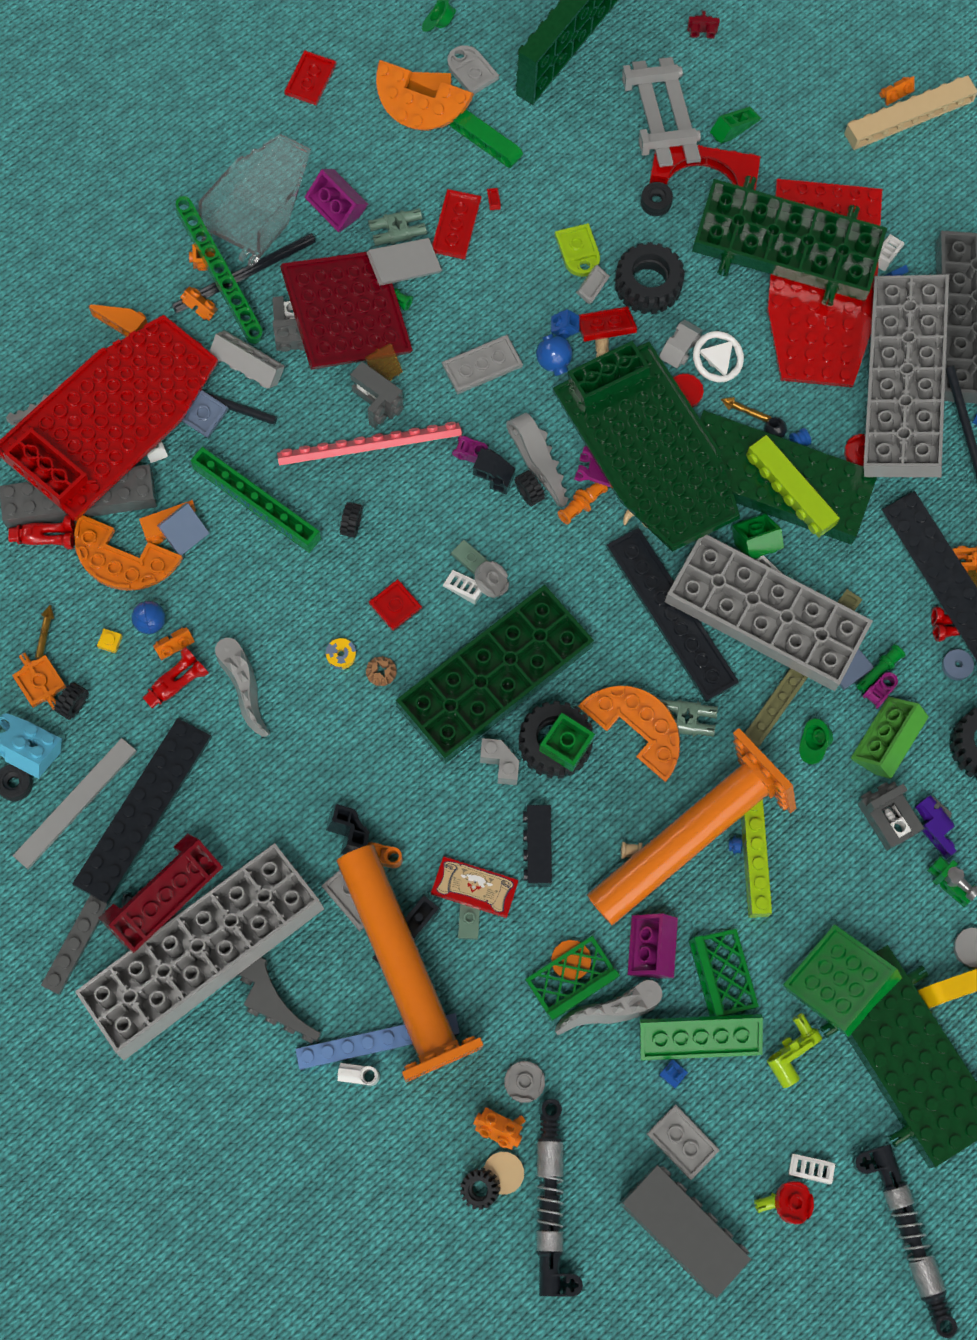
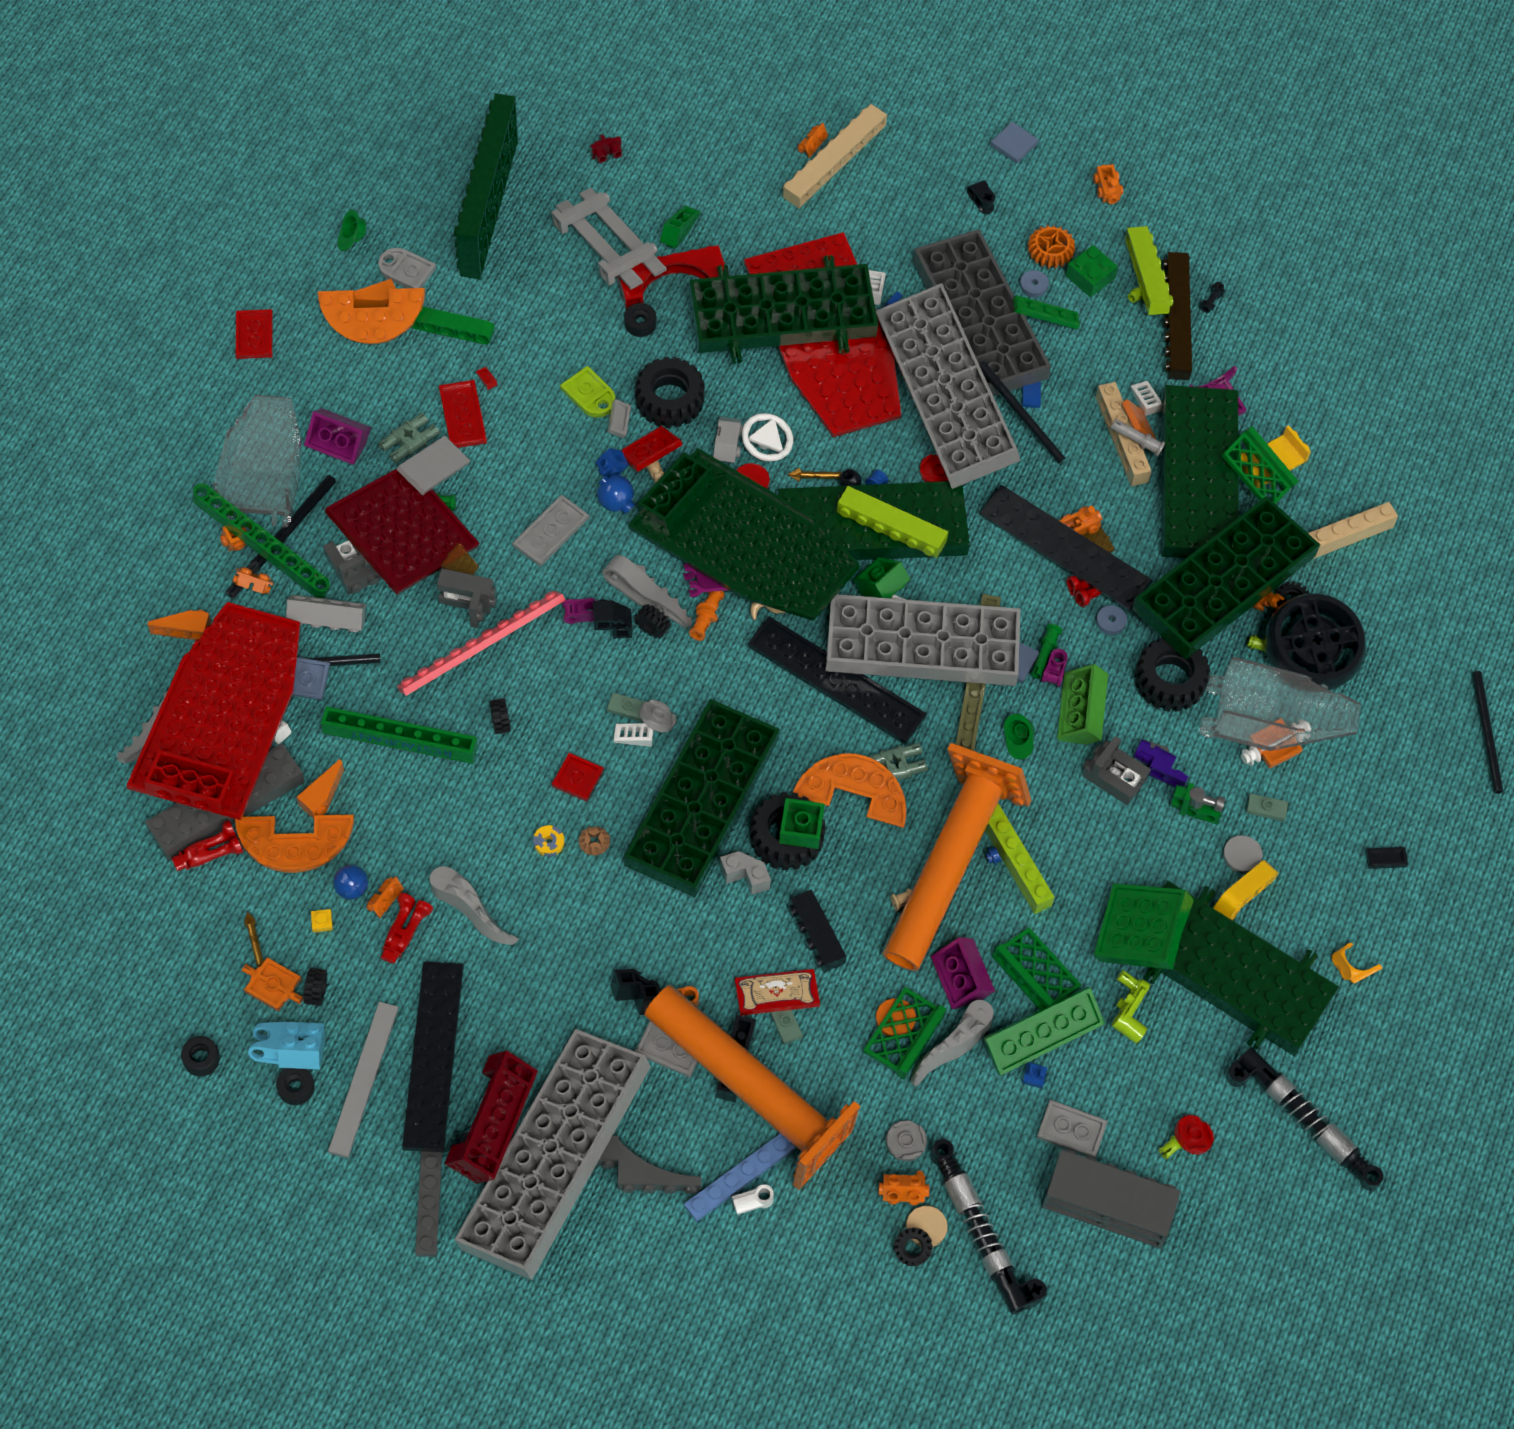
camera: 25 degrees left, 10 degrees down
(183, 529) = (343, 789): sand blue tile -> none
(829, 1173) = (1209, 1090): white slope -> none

